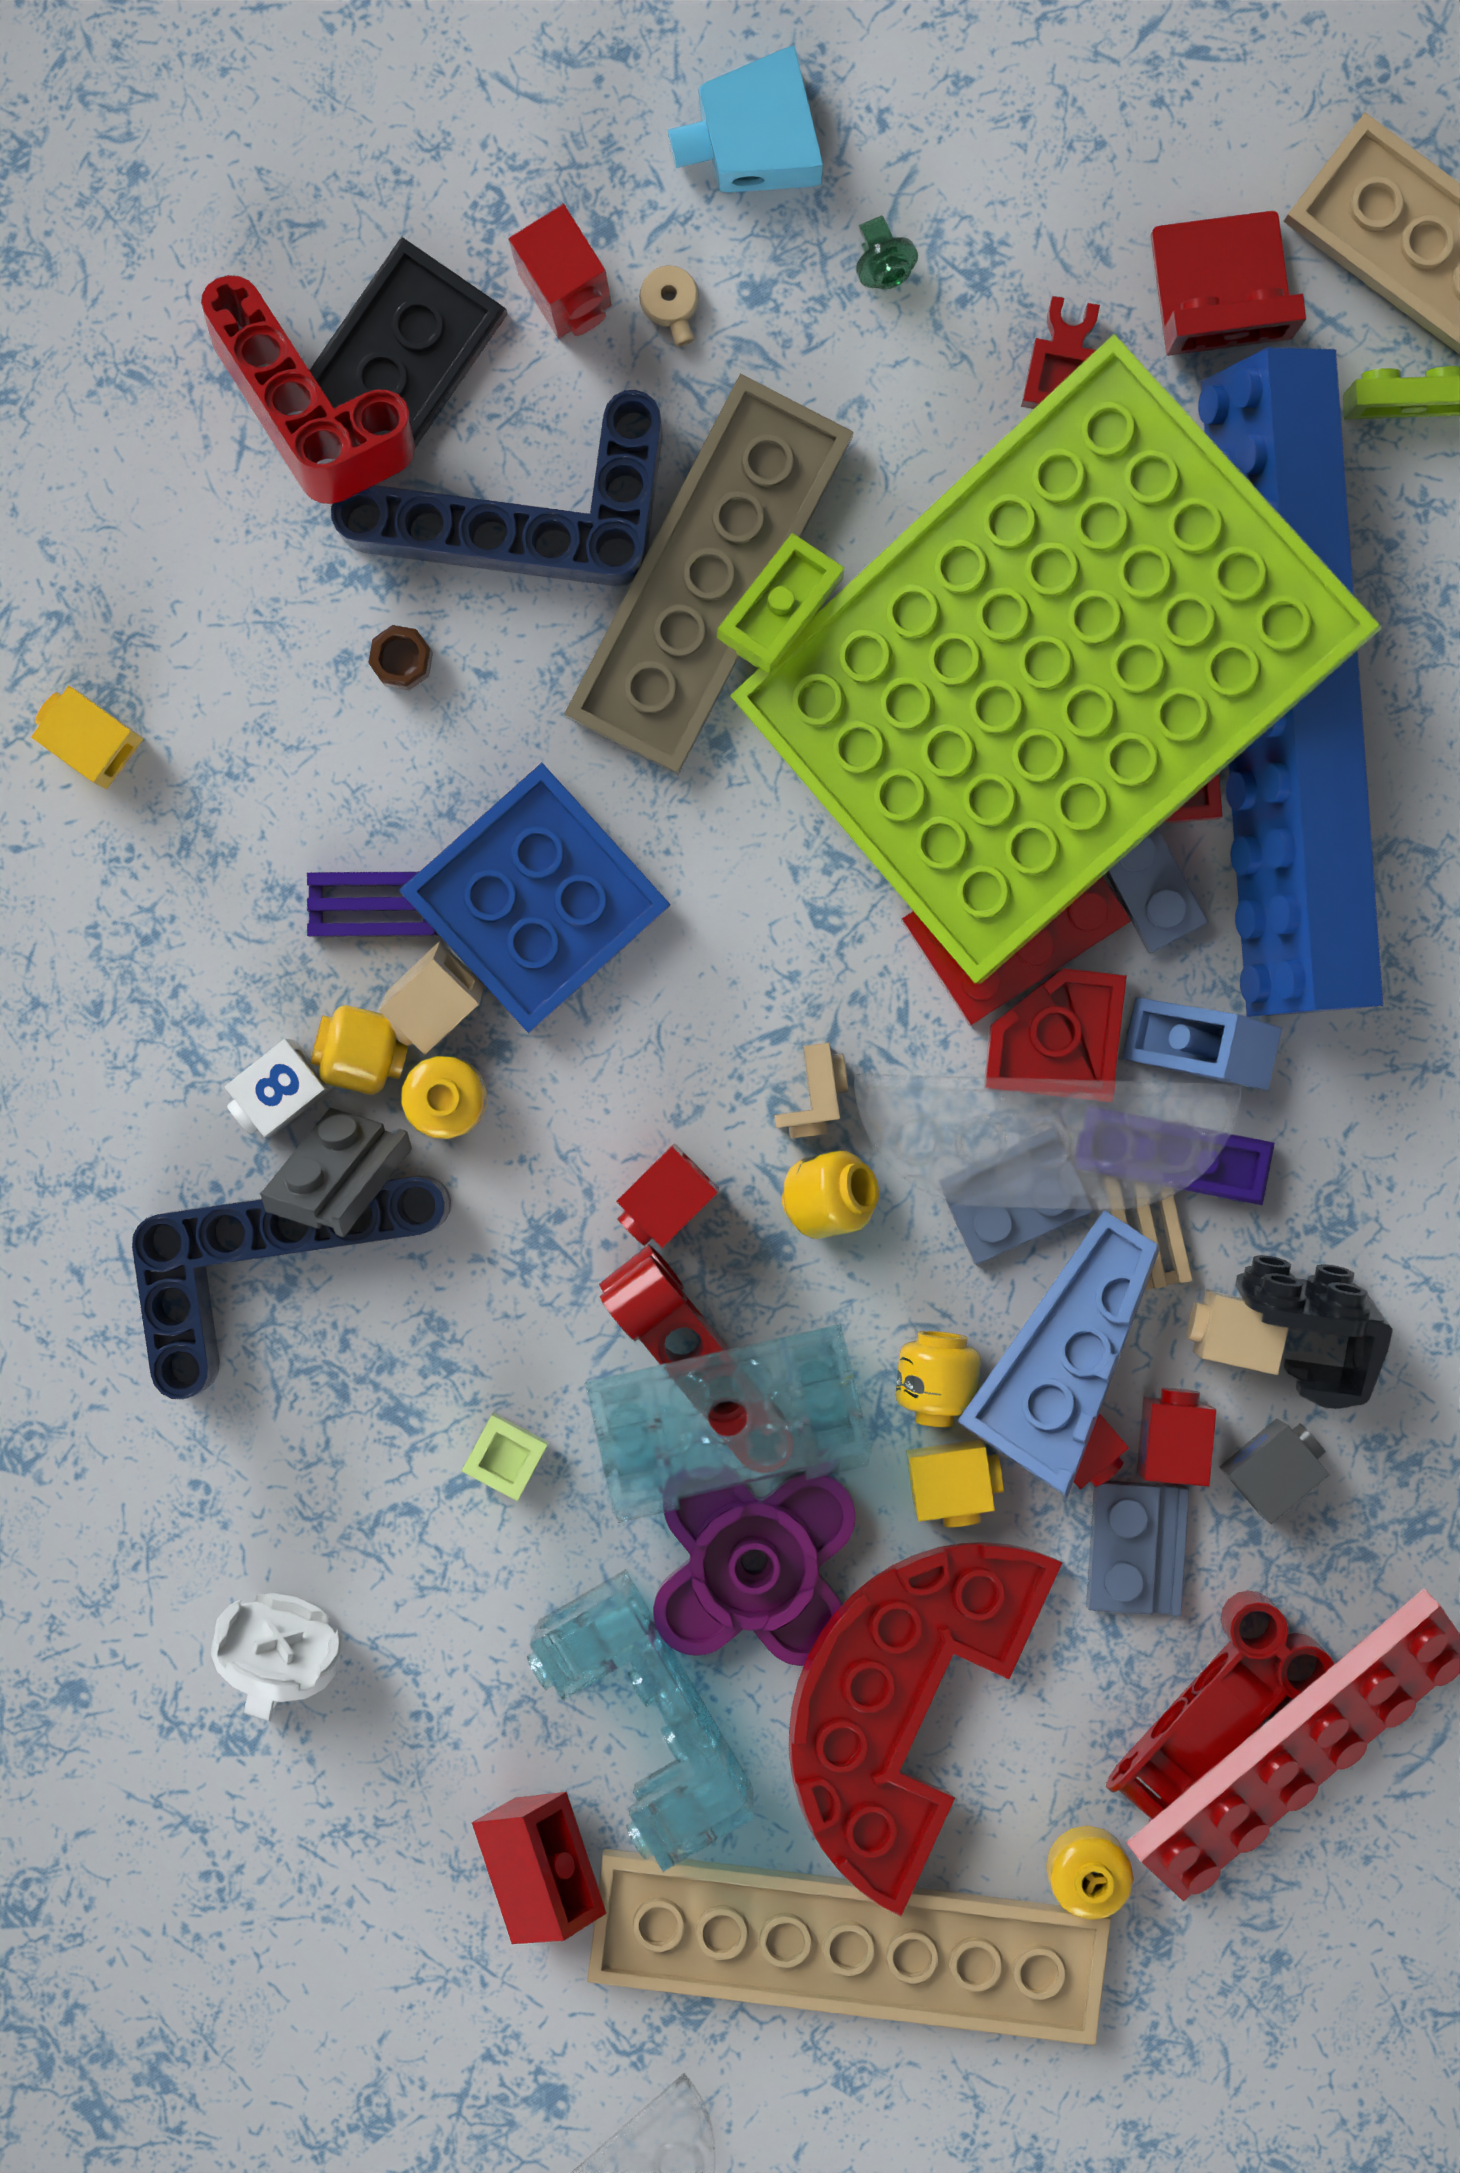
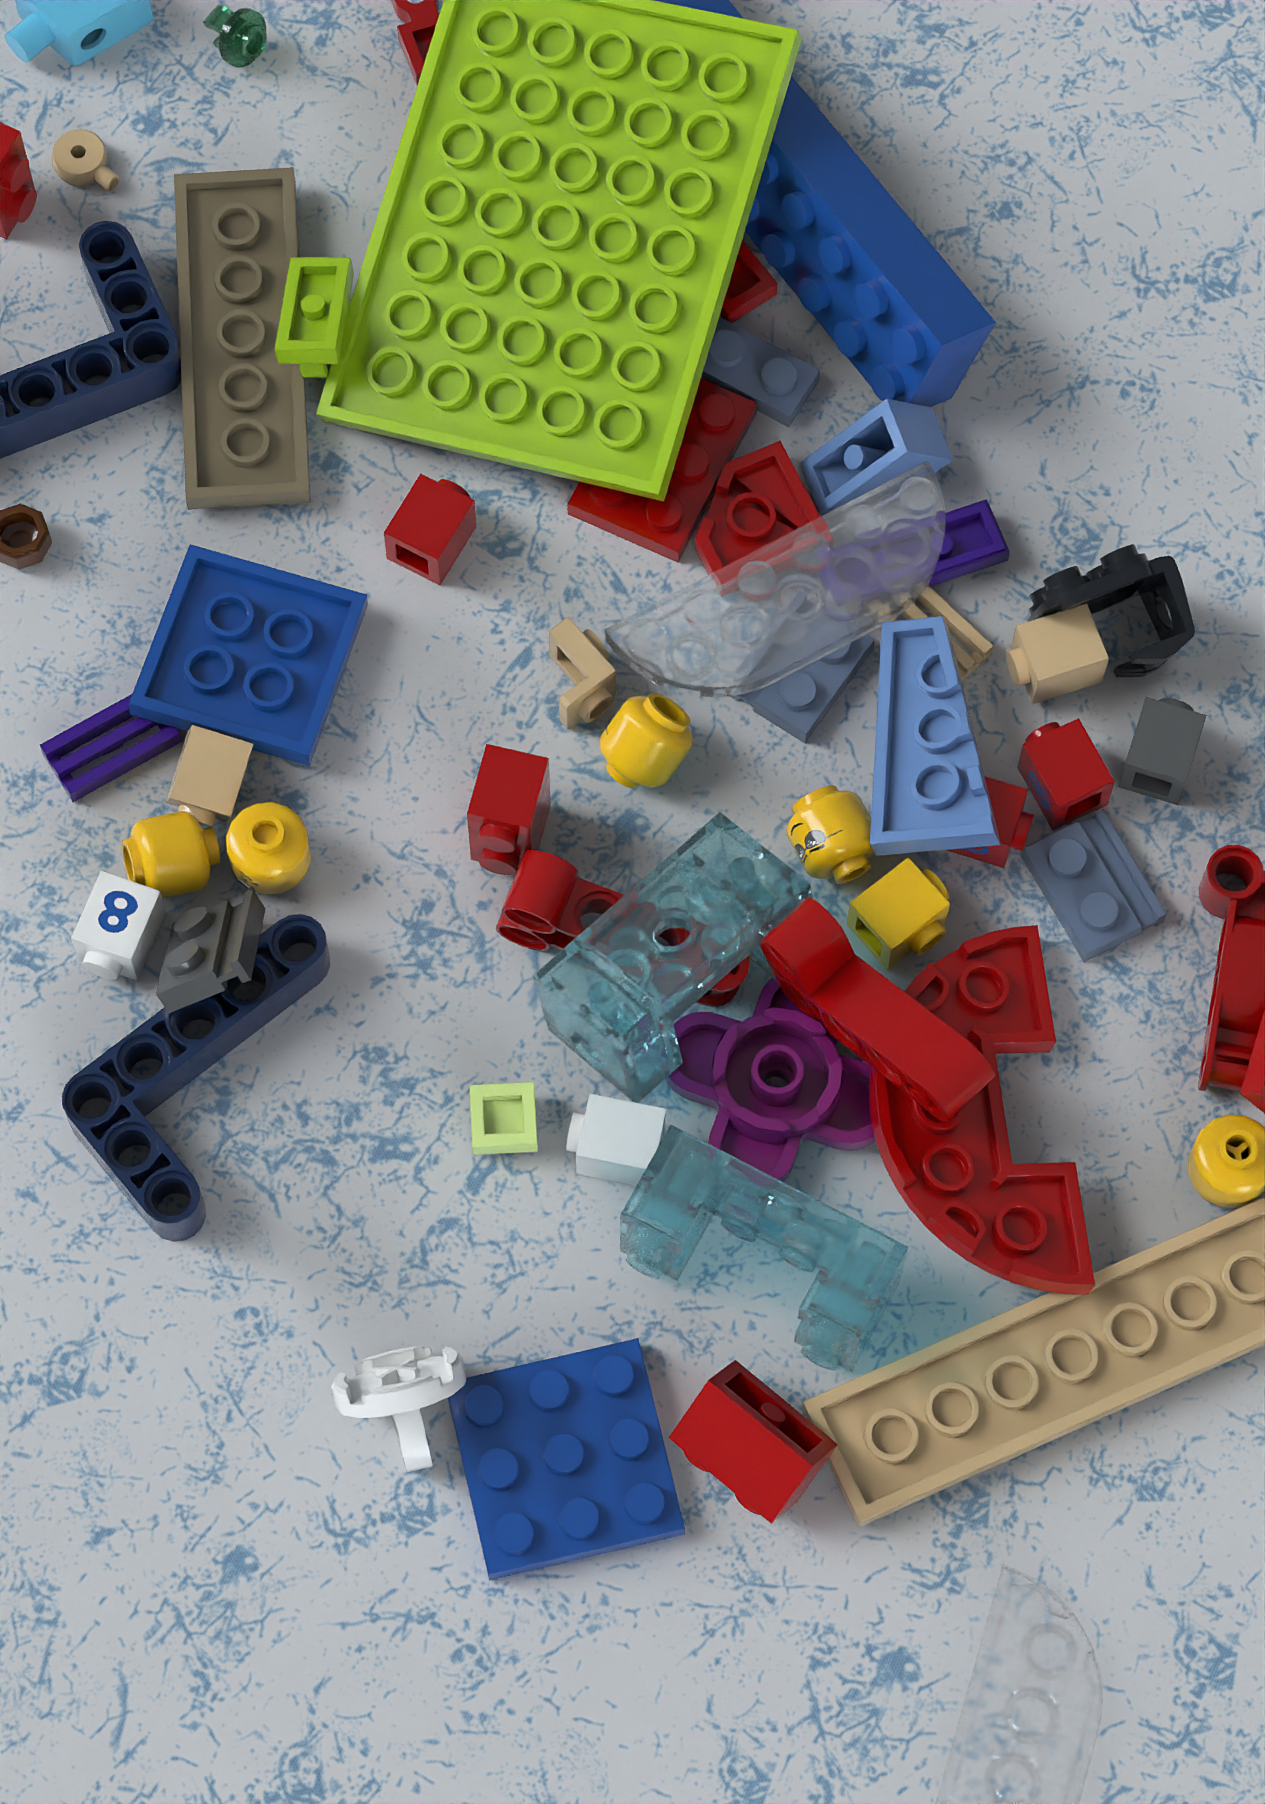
camera: 35 degrees left, 20 degrees down
(385, 1774) = (565, 1459): none -> blue plate
(587, 1537) = (615, 1138): none -> white brick
(767, 870) = (431, 528): none -> red brick
(858, 1597) = (872, 1013): none -> red beam

